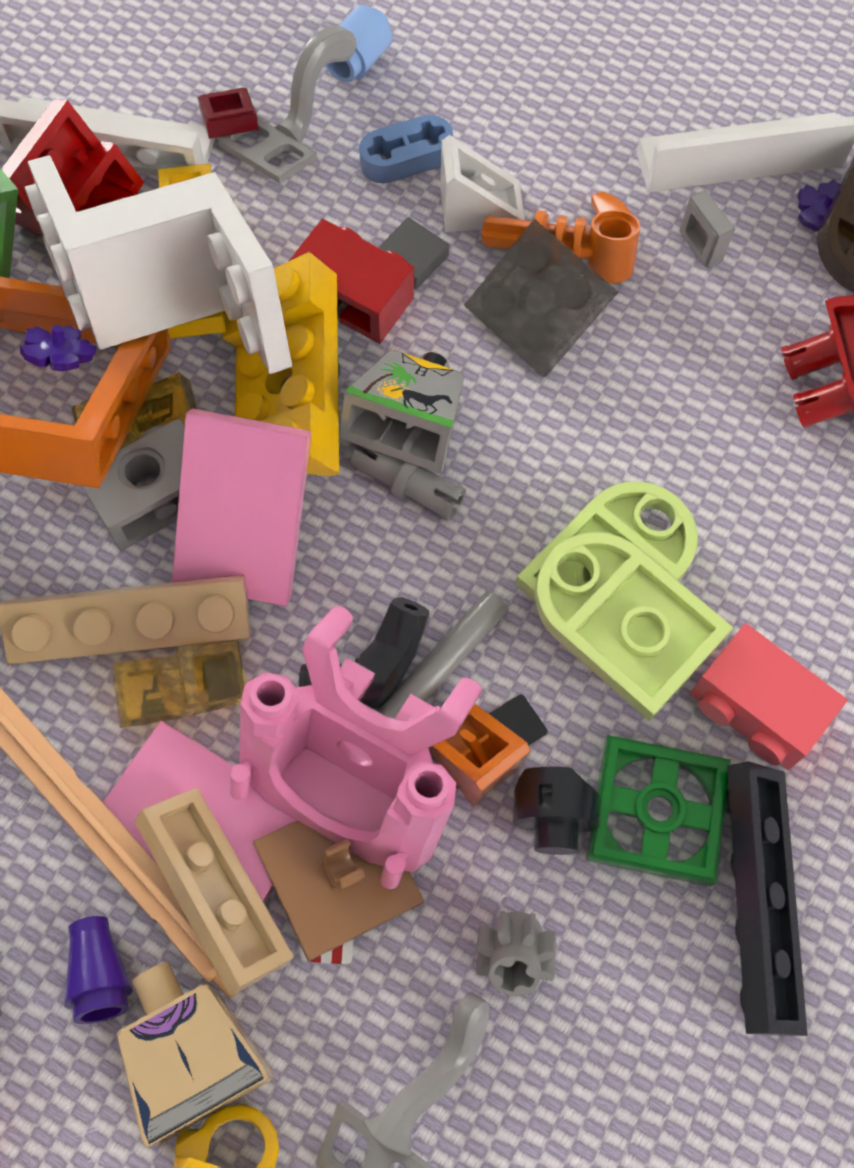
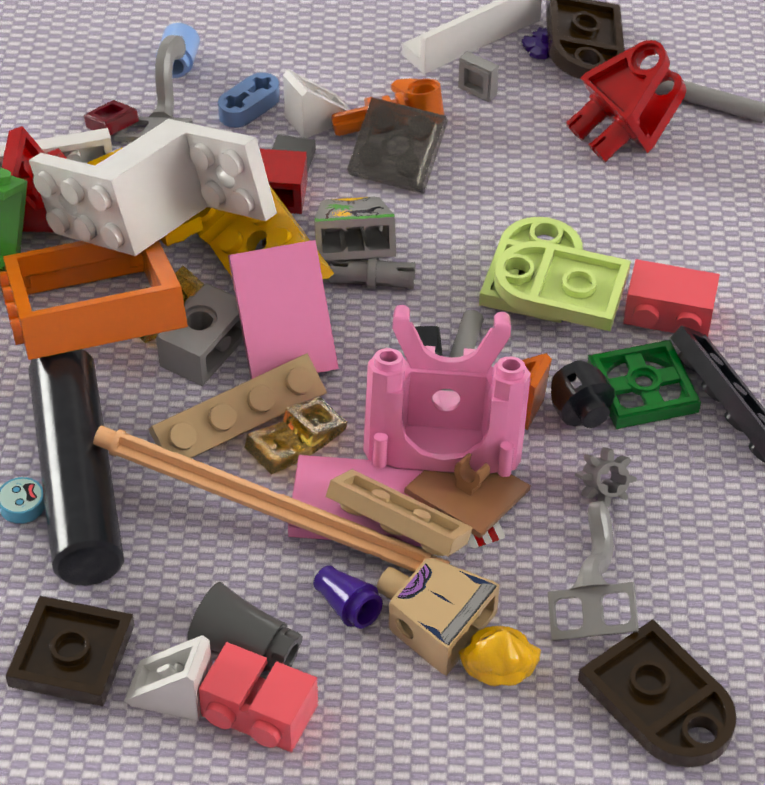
camera: 25 degrees left, 20 degrees down
(60, 349) = (108, 261): dark purple plant -> none

